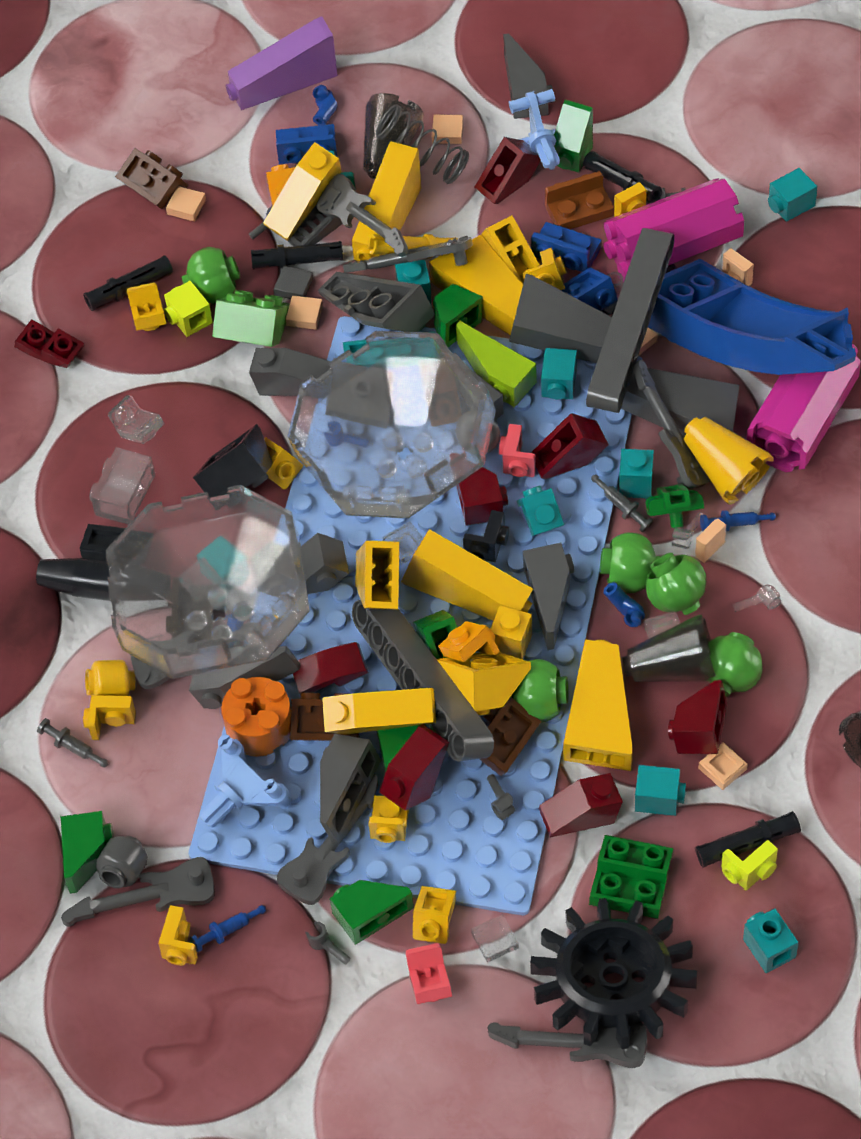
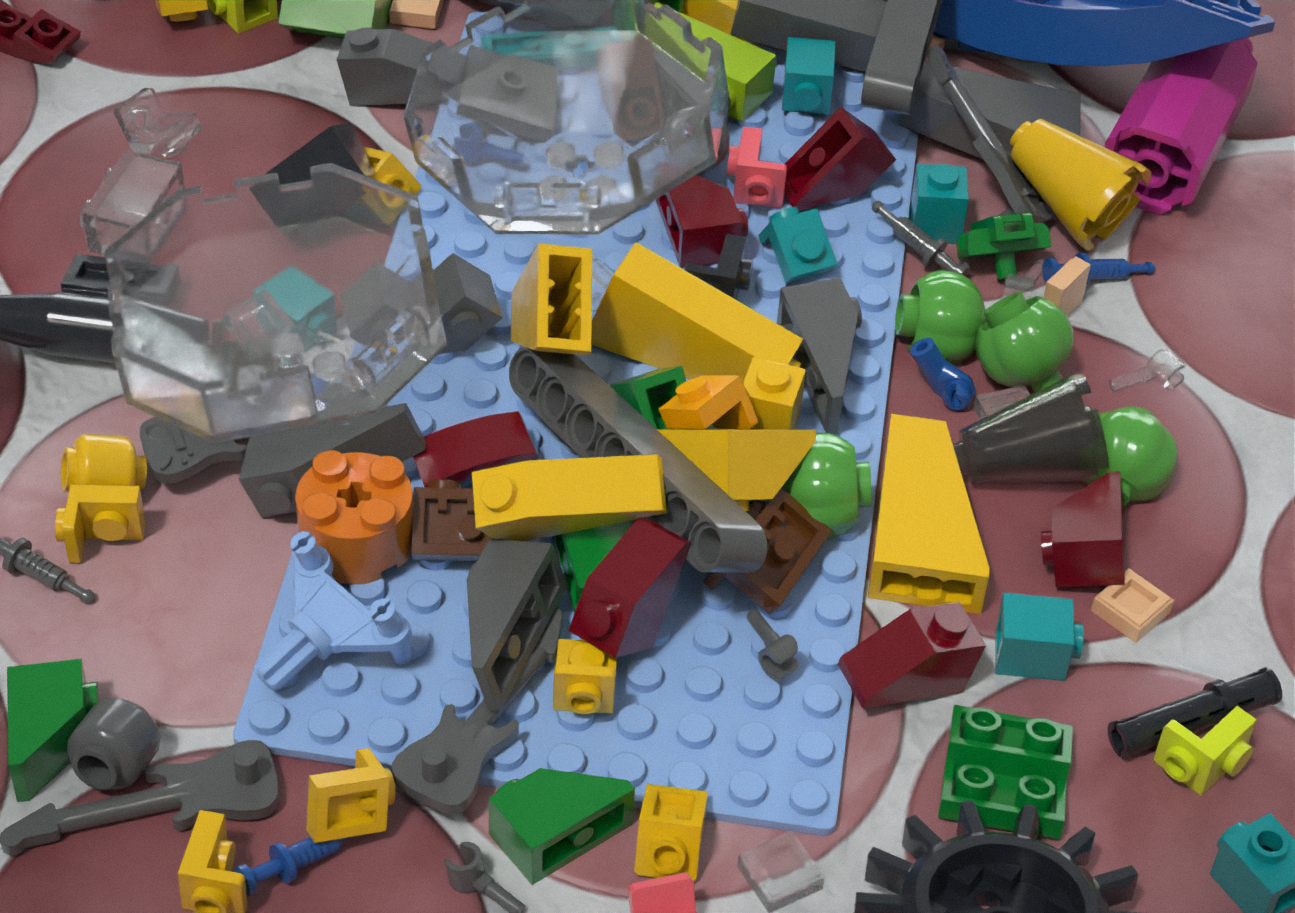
camera: 10 degrees left, 10 degrees down
(253, 898) = (350, 800): none -> yellow bracket

